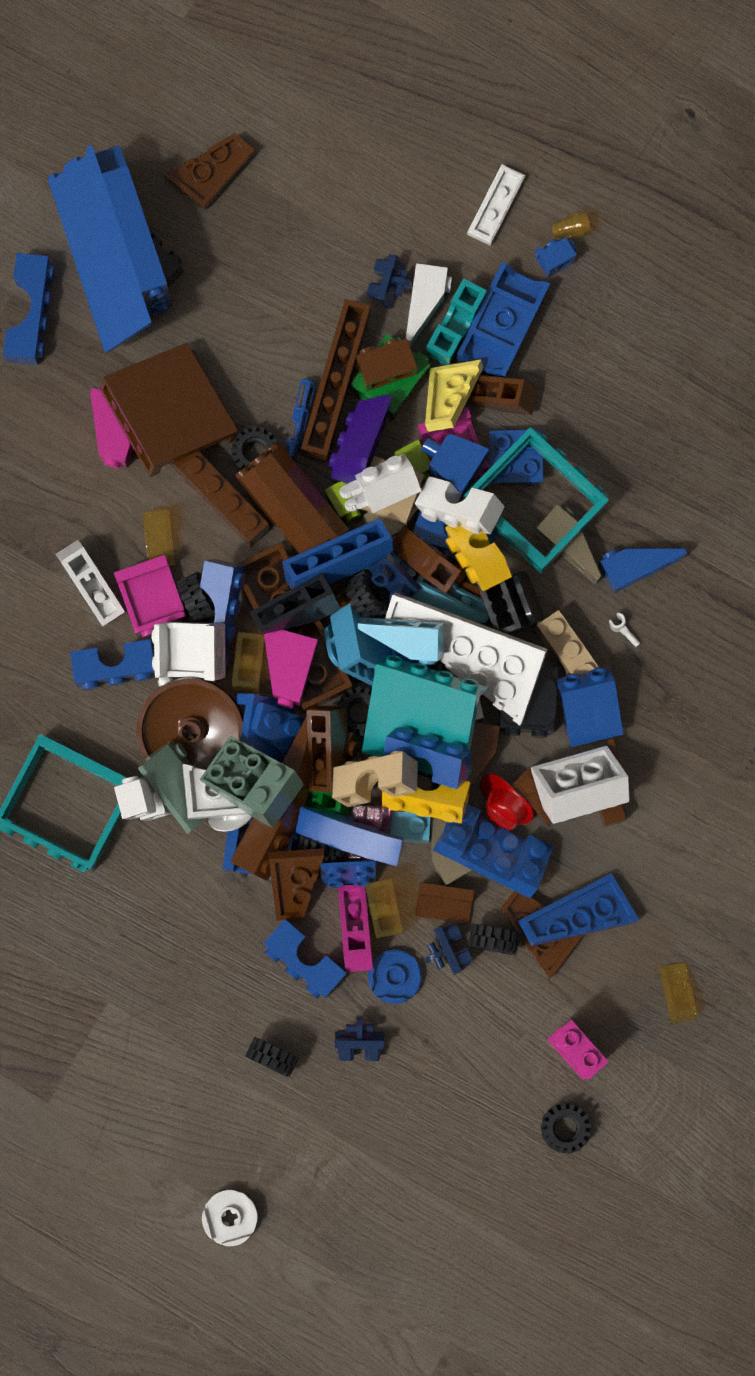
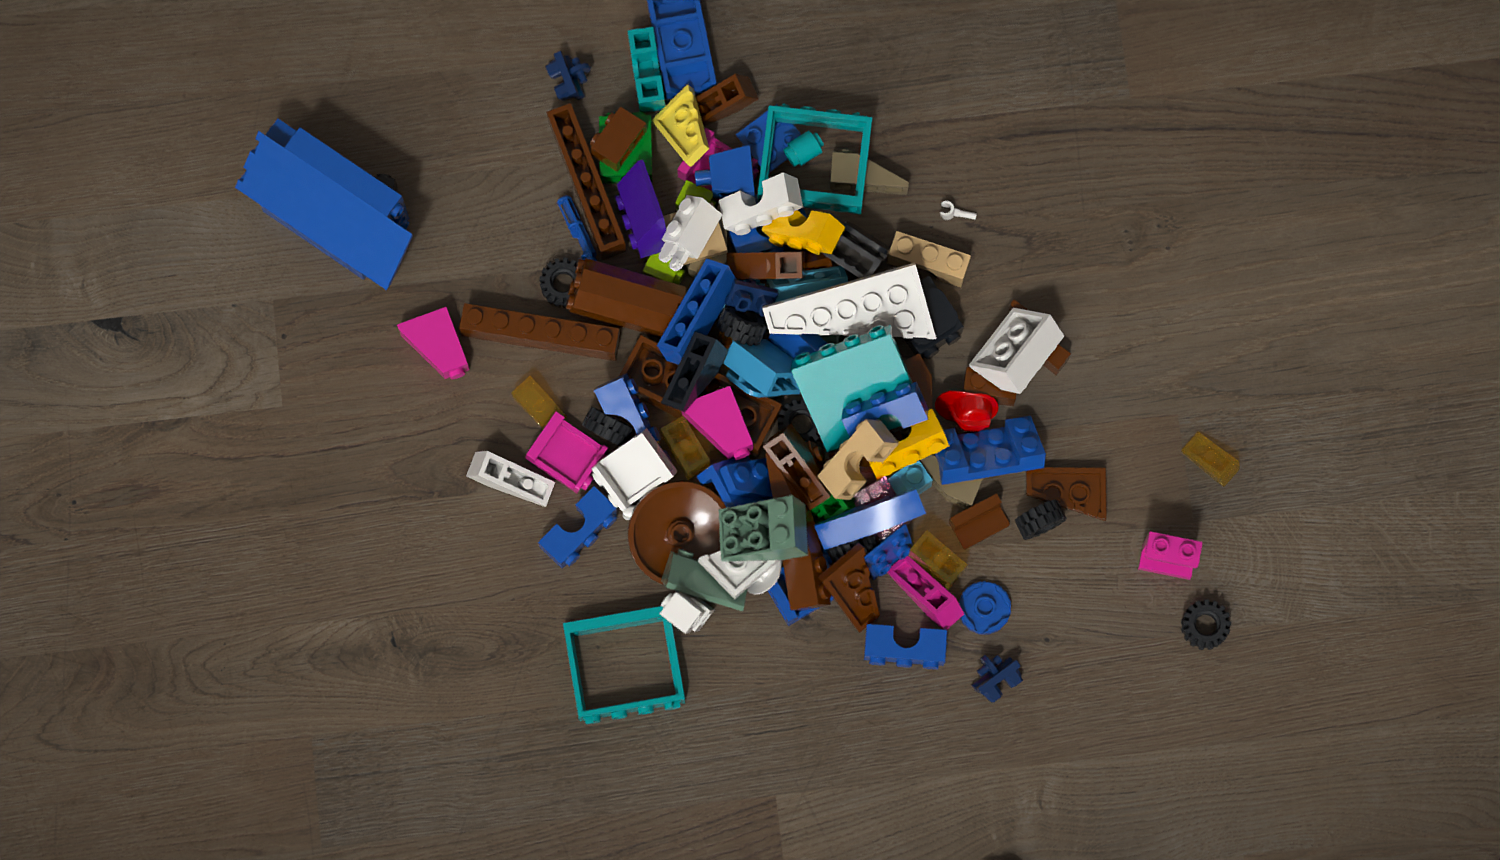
camera: 35 degrees left, 5 degrees down
(24, 341) = (280, 275): blue arch -> none
(167, 407) = (470, 296): reddish brown panel -> none
(210, 172) = (361, 91): reddish brown wing -> none
(271, 1057) = (938, 738): black tyre -> none
(410, 638) = (802, 331): medium azure slope -> none
(427, 295) = (605, 65): white slope -> none
(455, 960) = (1021, 560): dark blue hips -> none
(530, 485) = (803, 148): none -> teal brick
(580, 913) = (1092, 448): blue wing -> none
(590, 706) = (978, 286): blue panel -> none
(633, 565) = (927, 155): blue slope -> none

